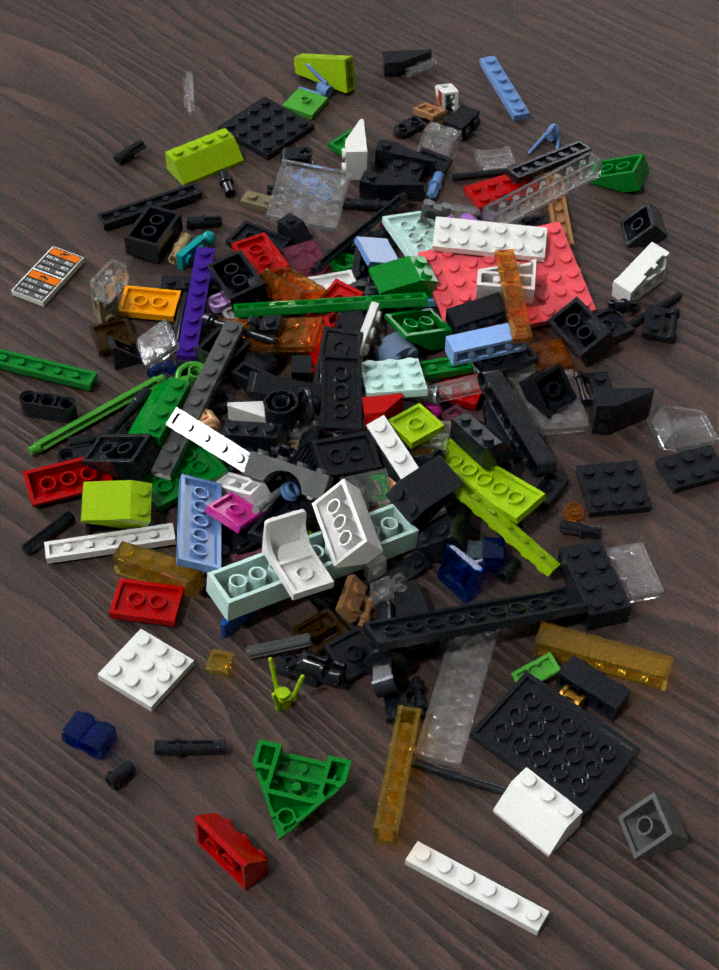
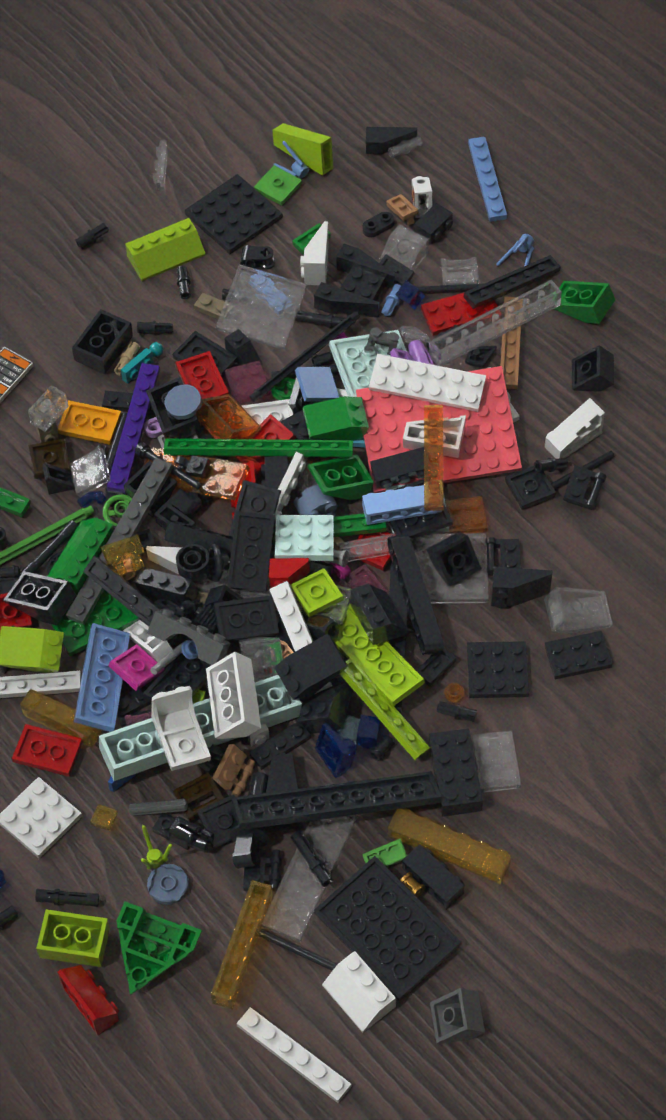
camera: 10 degrees right, 10 degrees up
(132, 211) = (109, 303): black plate -> none
(204, 786) = (73, 938): none -> lime brick
(205, 402) = (121, 550): none -> clear yellow plate
(247, 268) = (183, 401): none -> sand blue tile
(301, 368) = (220, 518): black brick -> none
(301, 724) = (168, 884): none -> sand blue tile
(385, 587) = (261, 759): clear plate -> none
(452, 178) = (410, 295): none -> clear blue brick
(454, 675) = (316, 865): none -> black pin
(581, 331) = (500, 494): black brick -> none

